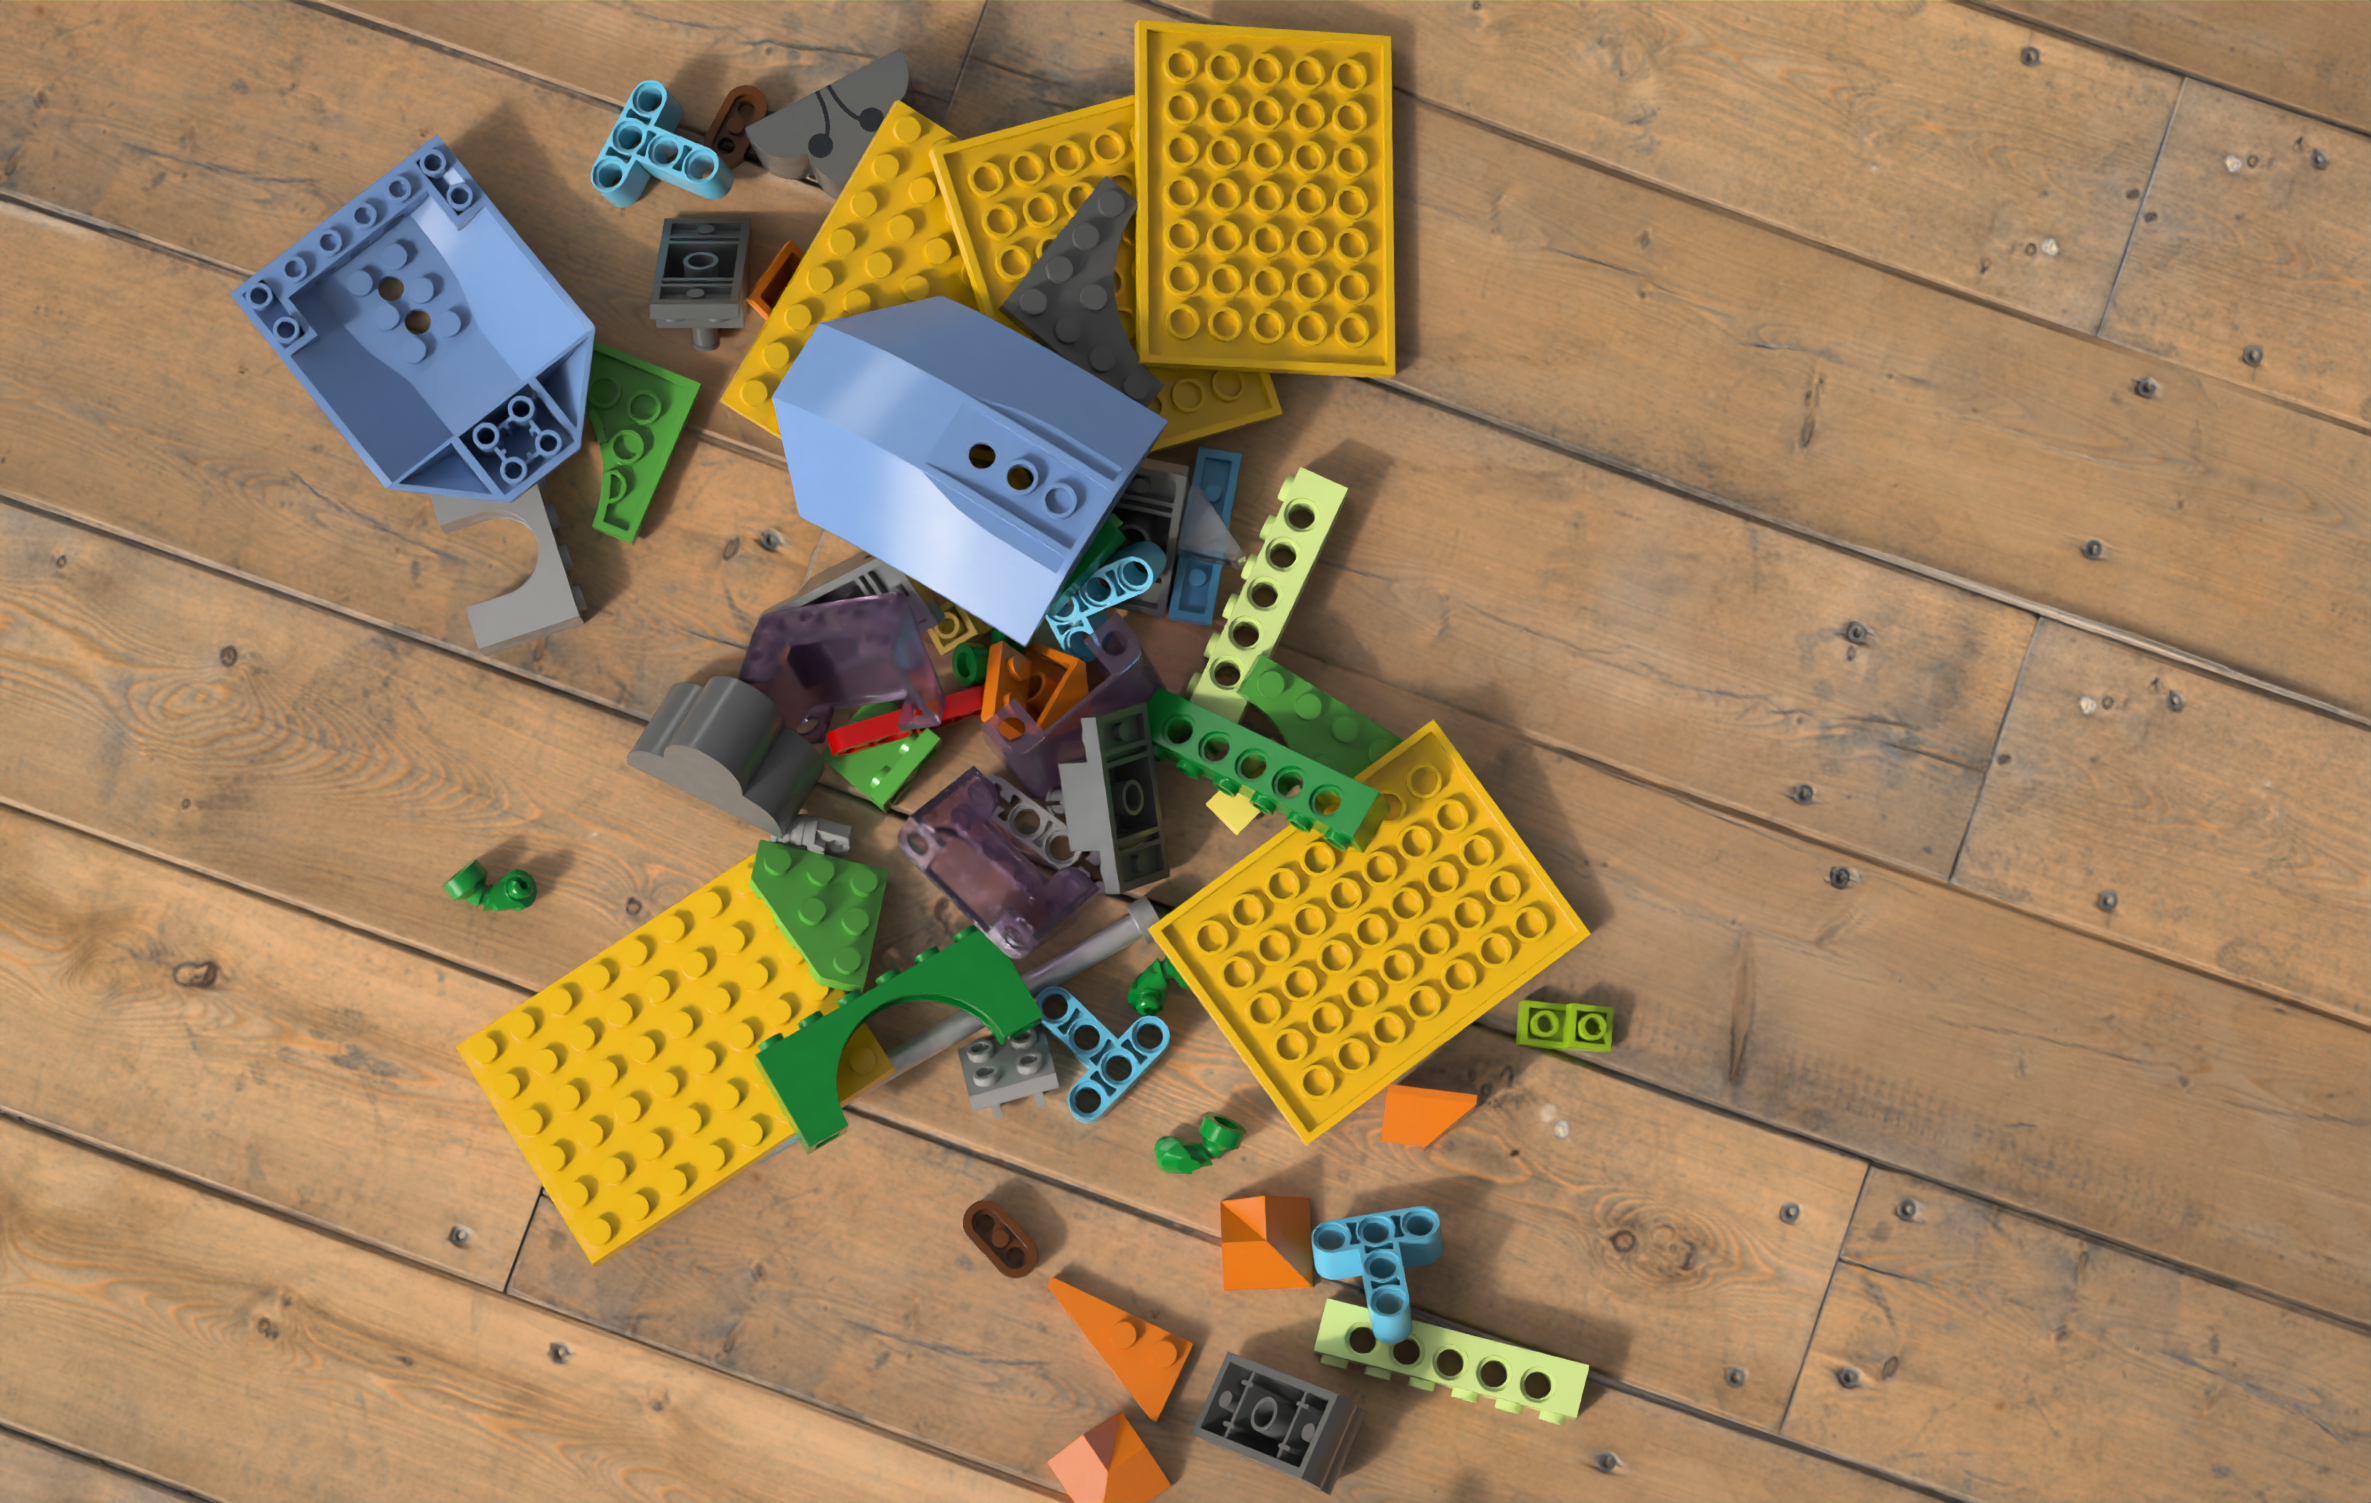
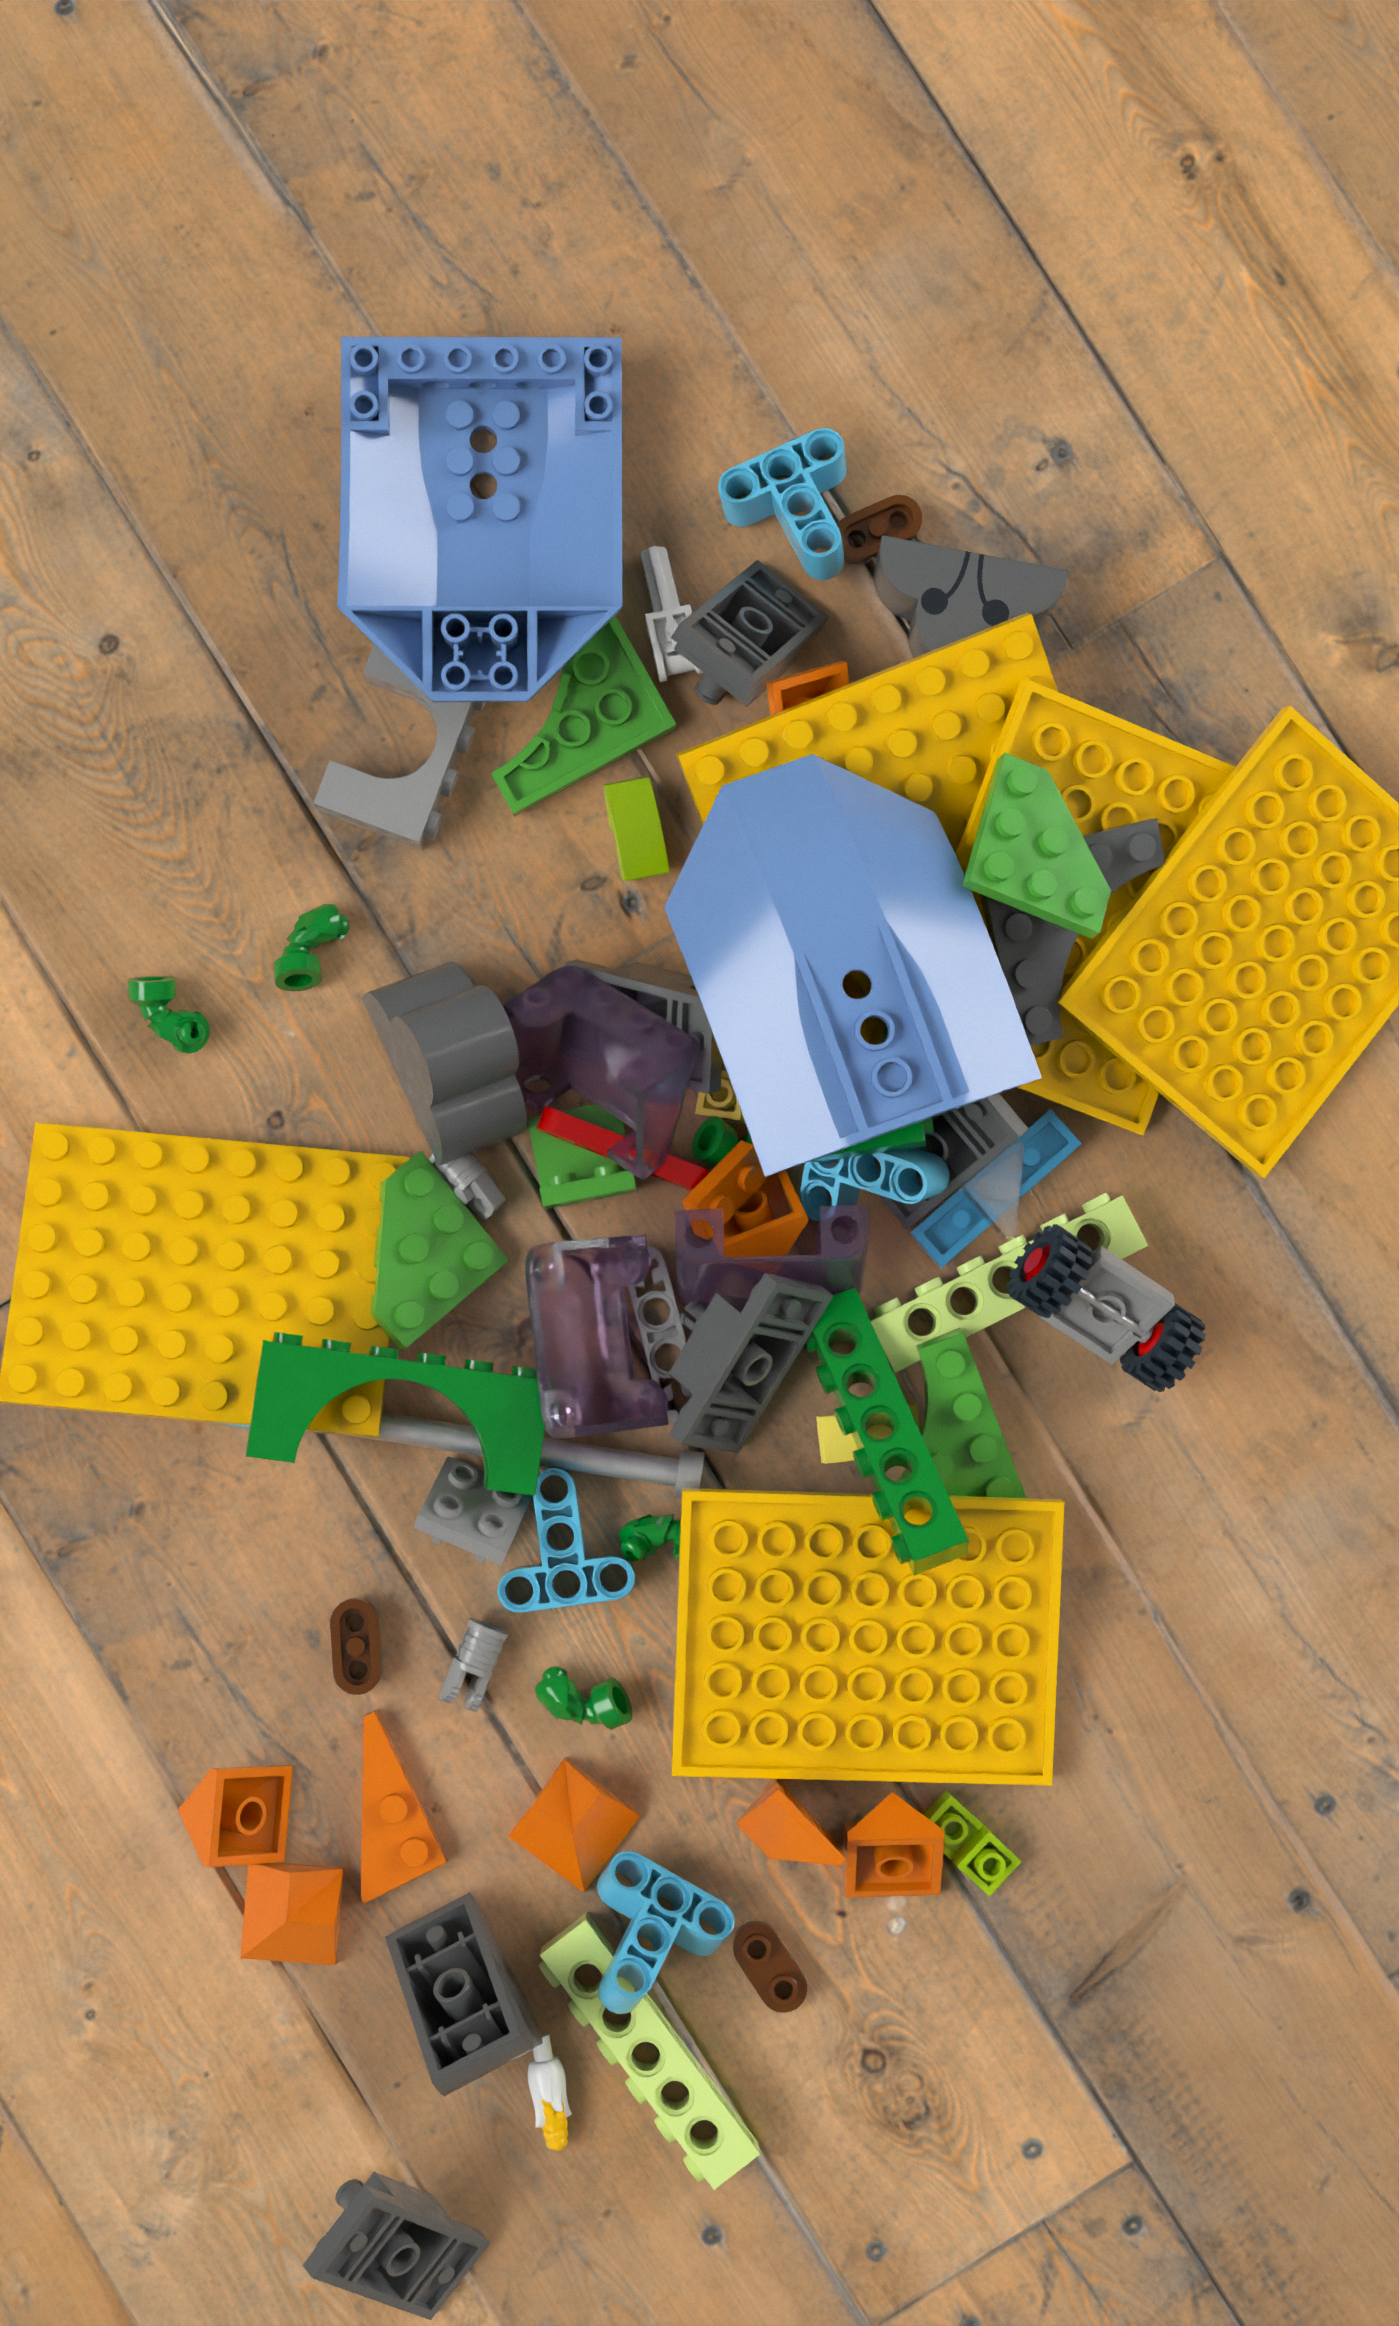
camera: 25 degrees right, 5 degrees up
(560, 778) = (297, 967): none -> green arm
(631, 310) = (666, 614): none -> white connector
(732, 482) = (636, 828): none -> lime slope
(1012, 1427) = (239, 1815): none -> orange slope
(1035, 267) = (1034, 852): none -> bright green plate
(1094, 1174) = (477, 1656): none -> light grey hinge
(1352, 554) = (1107, 1307): none -> plate
(1403, 1451) = (549, 2095): none -> white piece
(1491, 1231) = (771, 1967): none -> reddish brown plate
(1514, 1074) = (893, 1852): none -> orange slope

